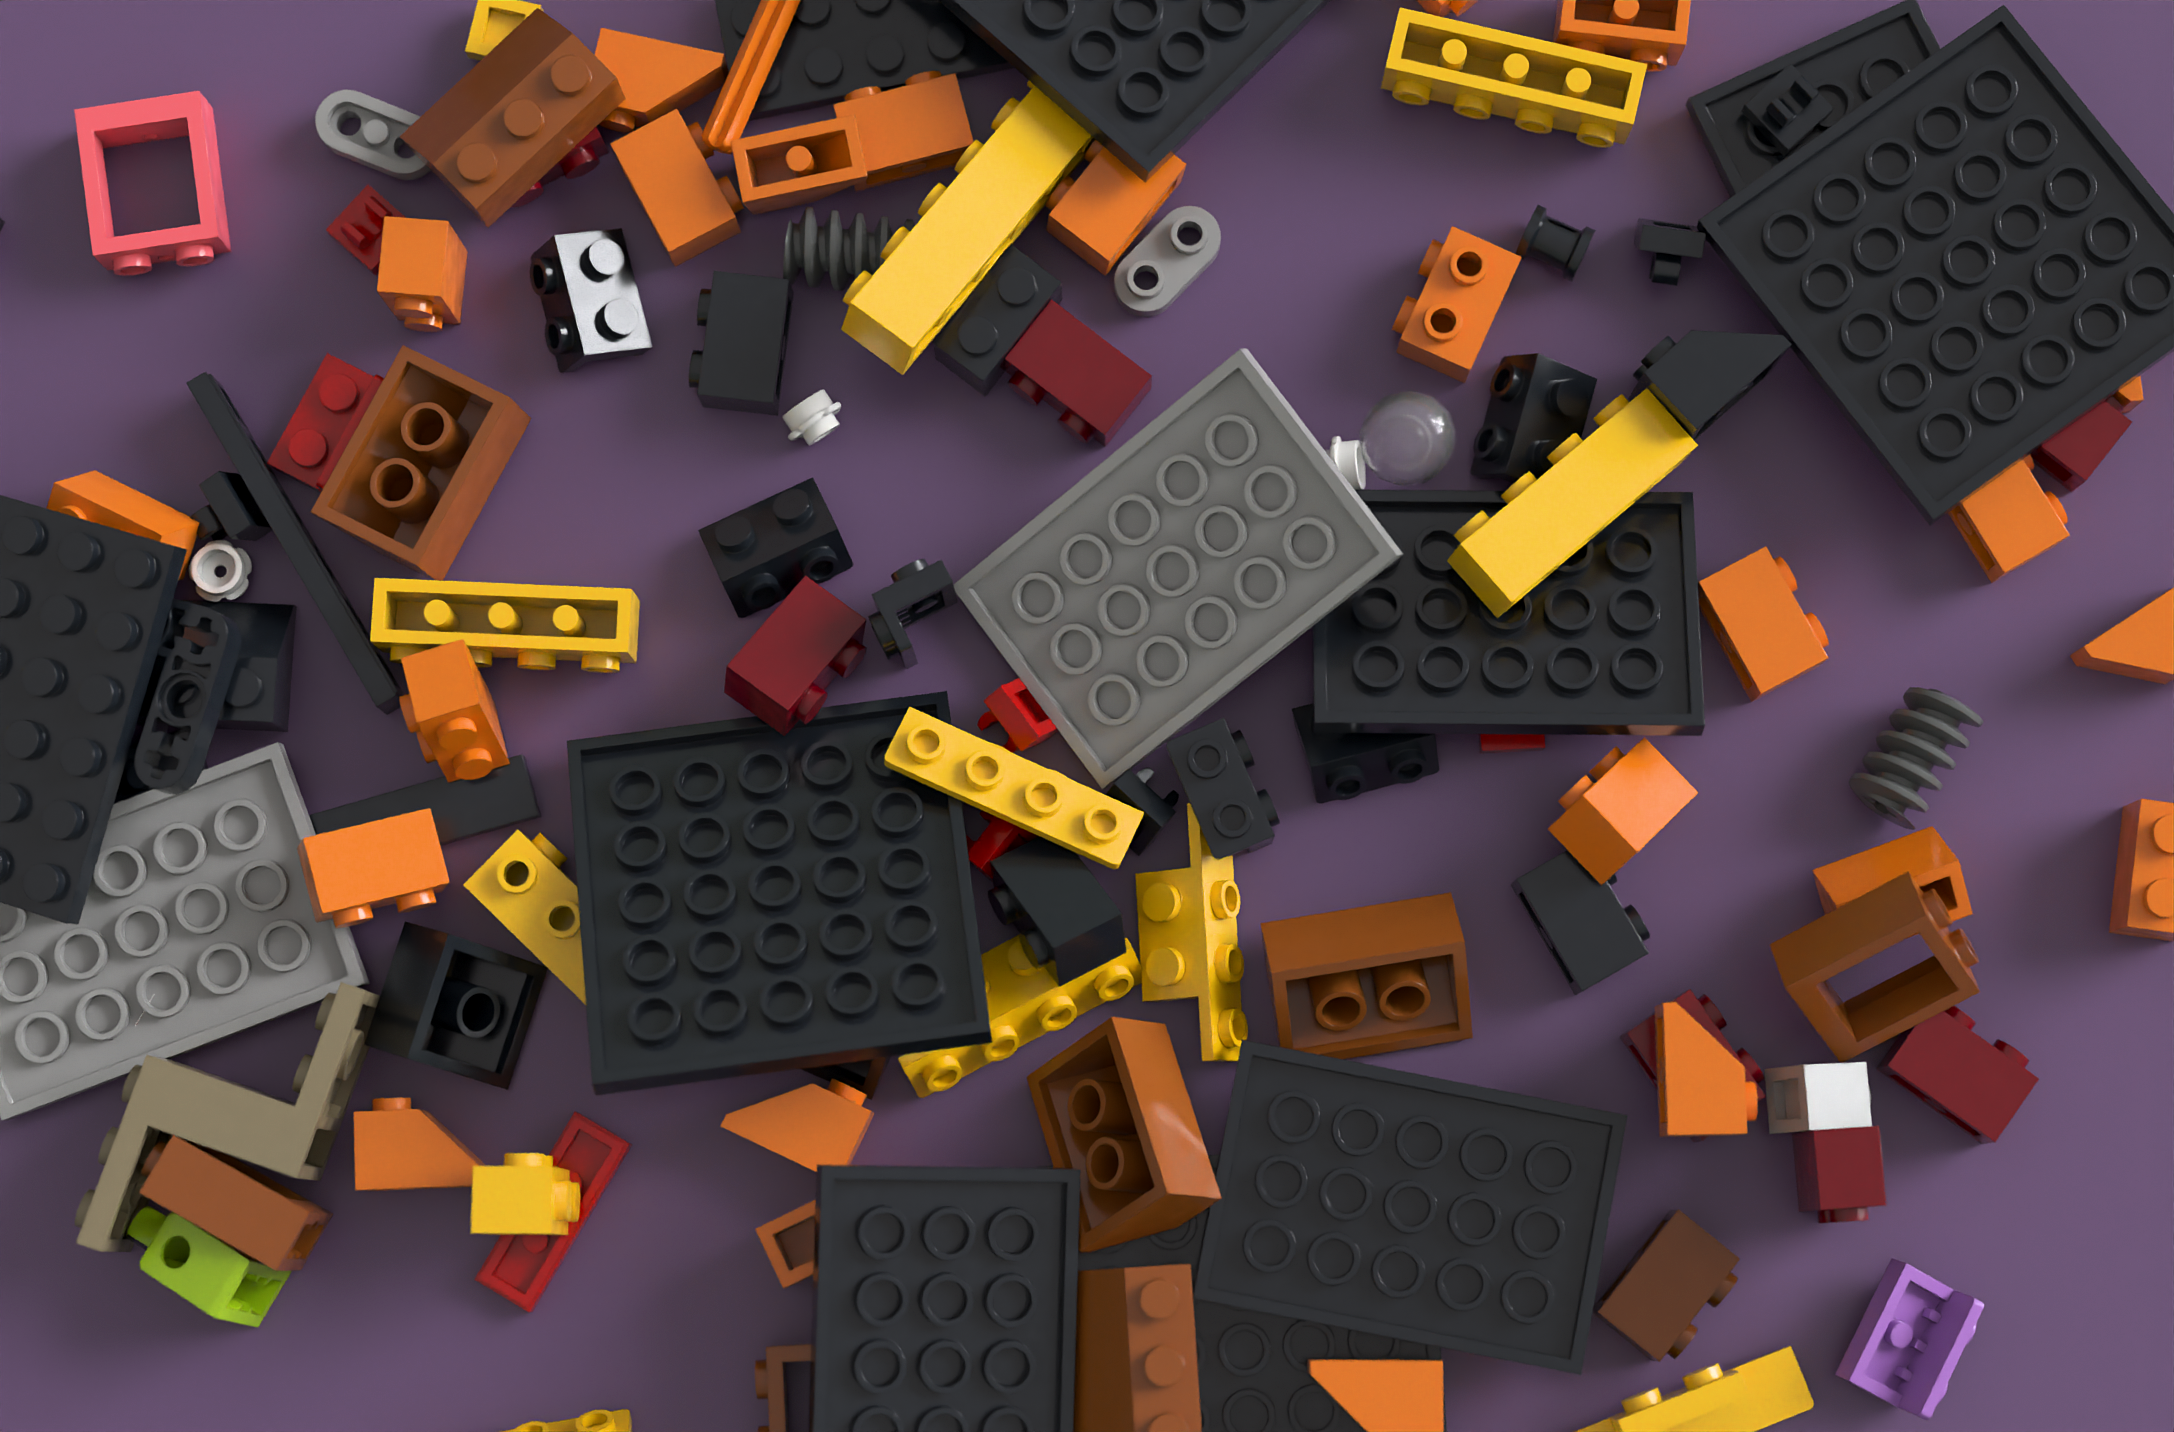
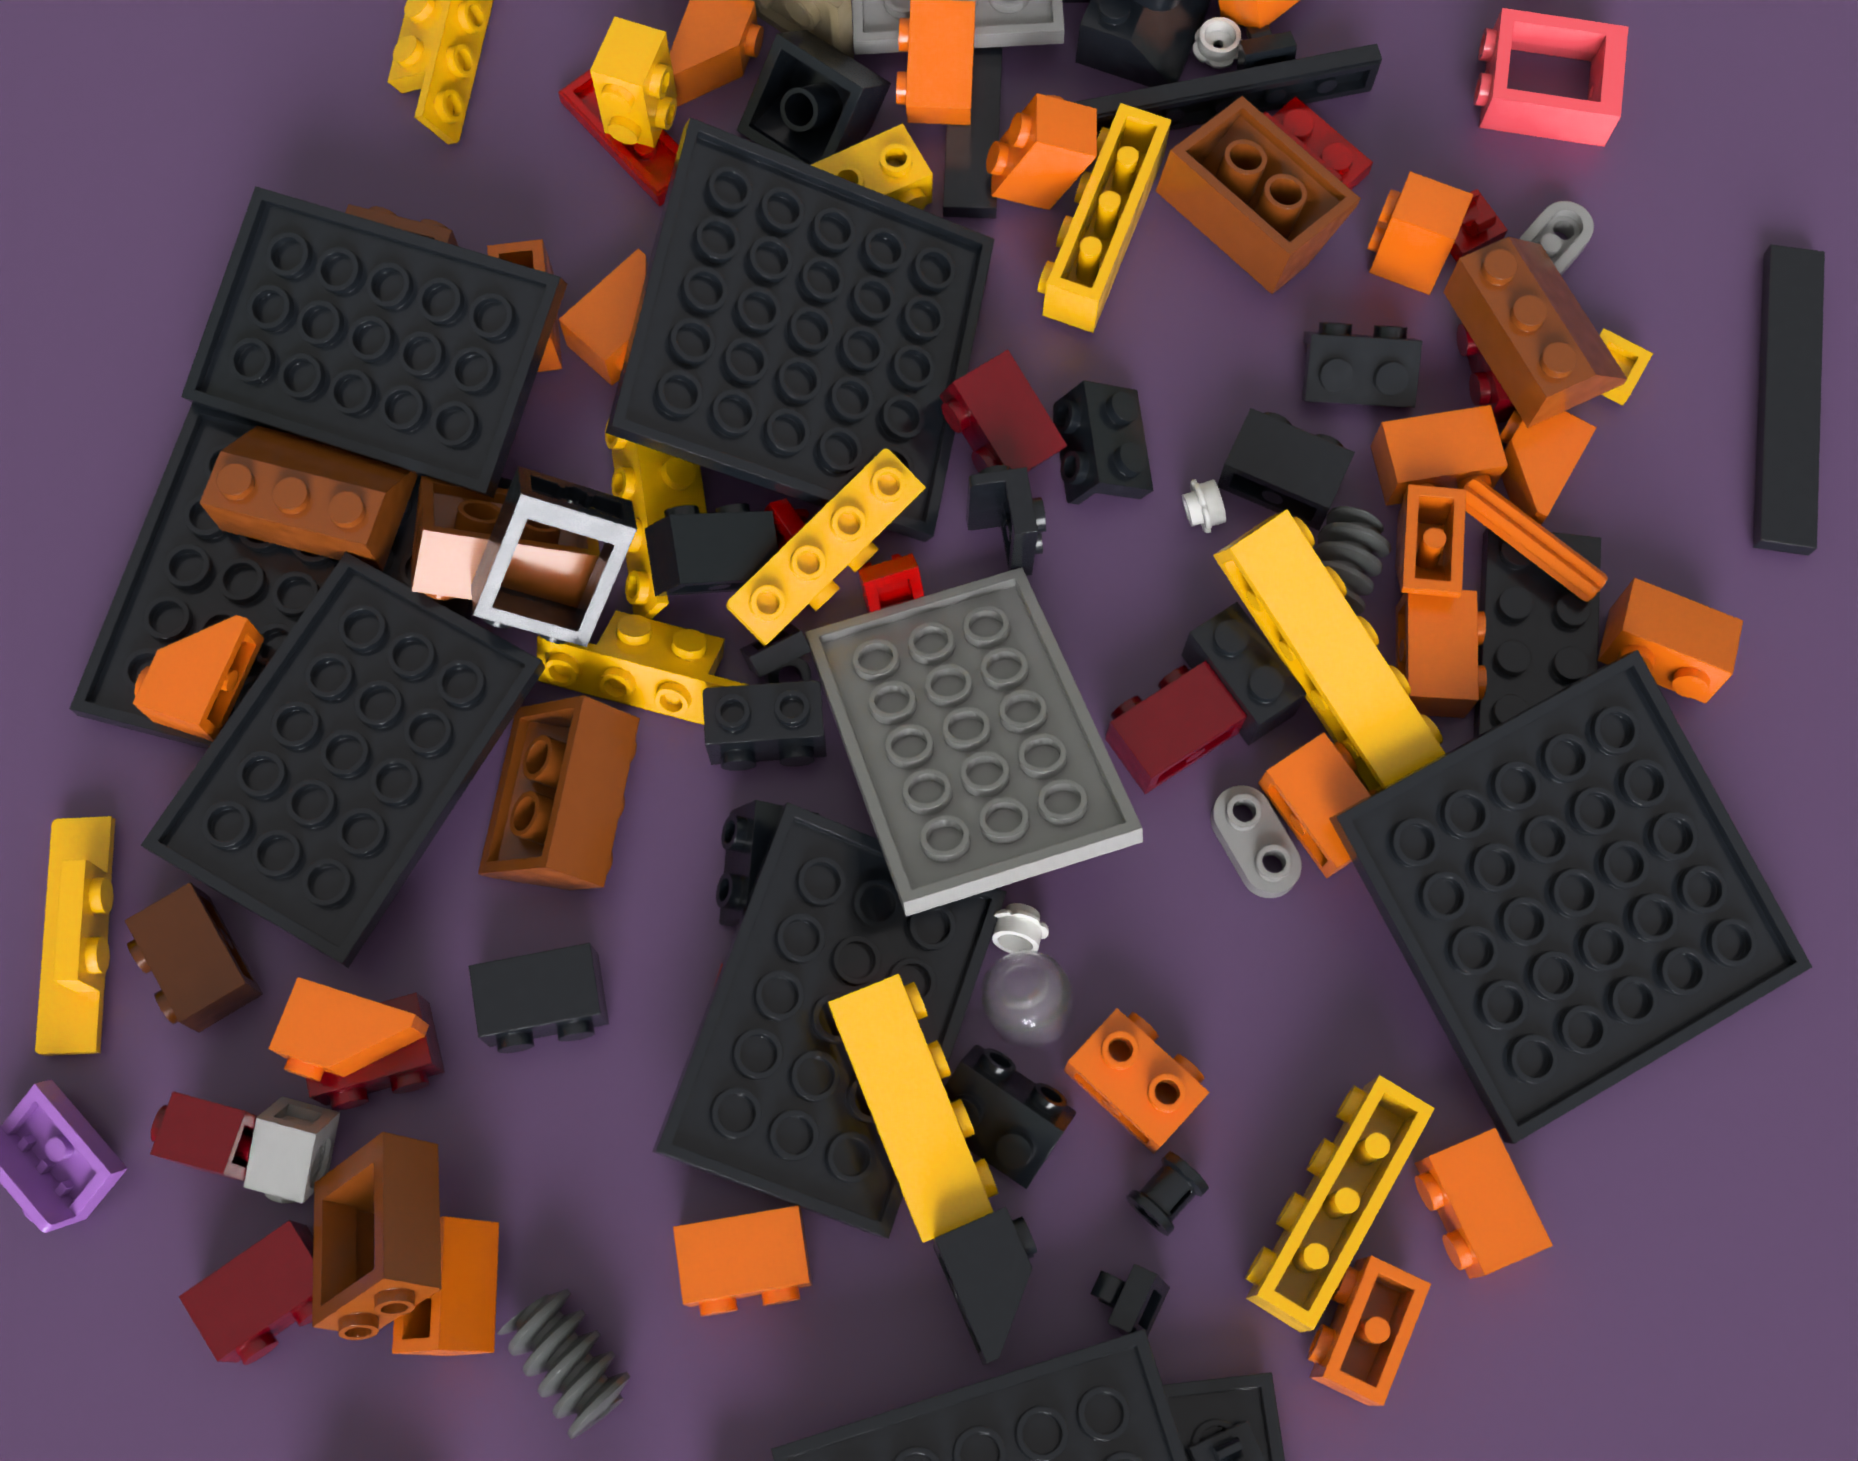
camera: 105 degrees right, 10 degrees down
(1107, 1079) = (567, 508): none -> window
(1622, 810) = (614, 1057): orange brick -> none

